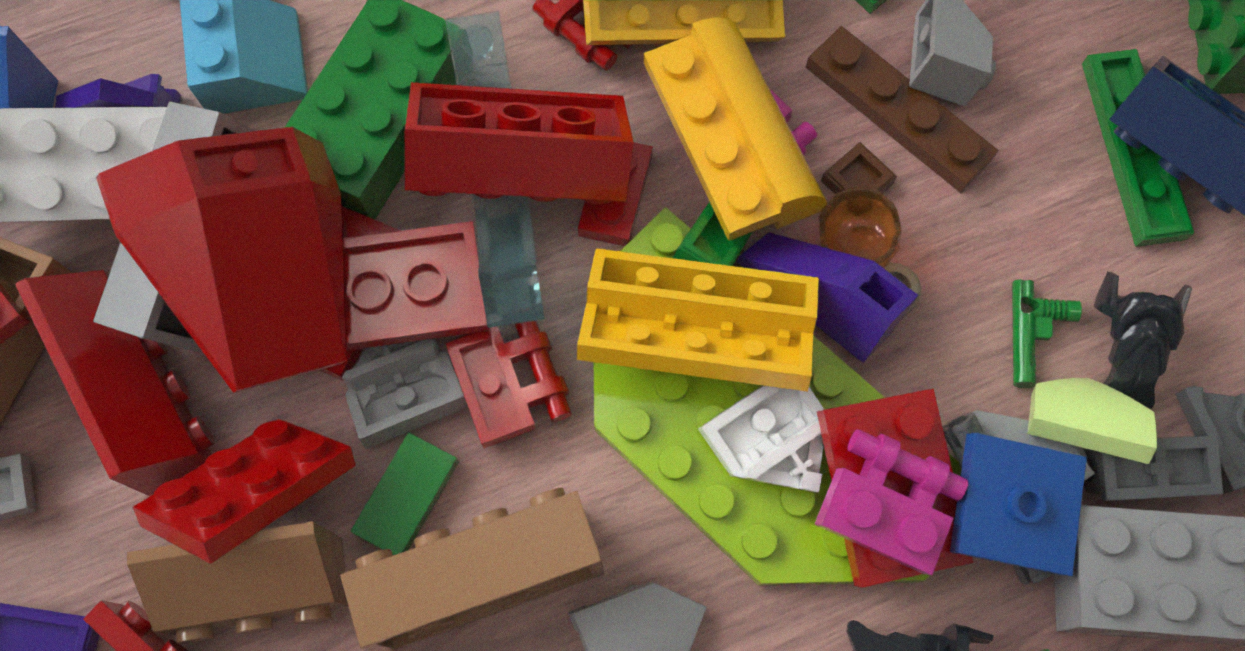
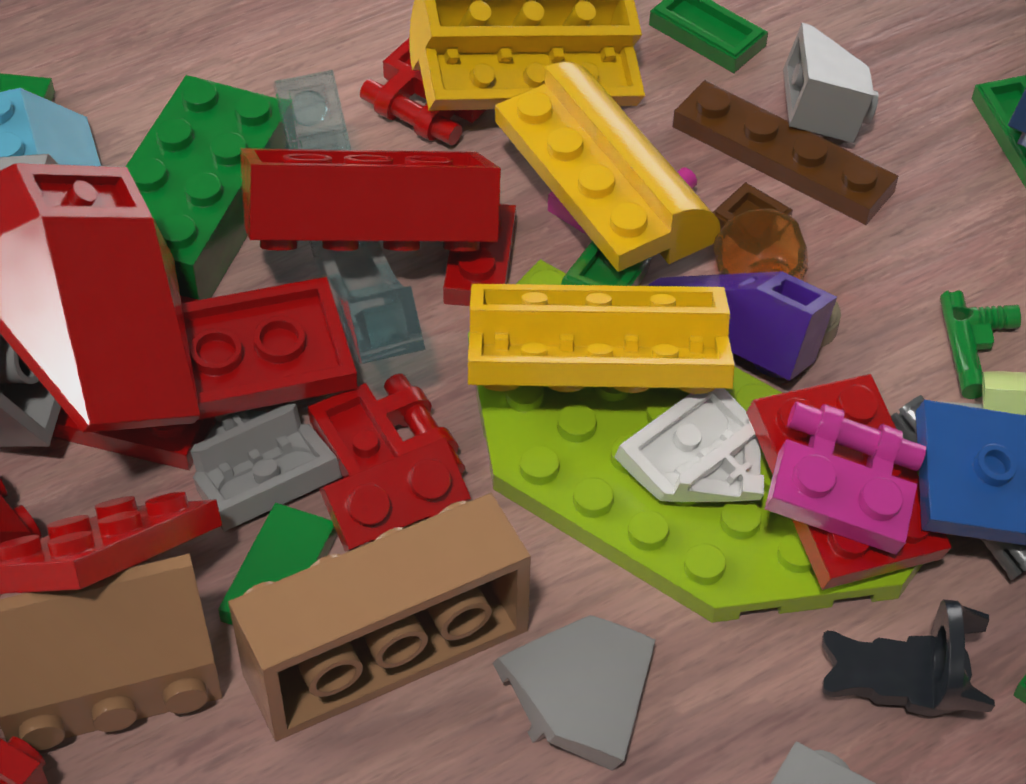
camera: 10 degrees left, 20 degrees down
(505, 447) = (394, 493): none -> red plate

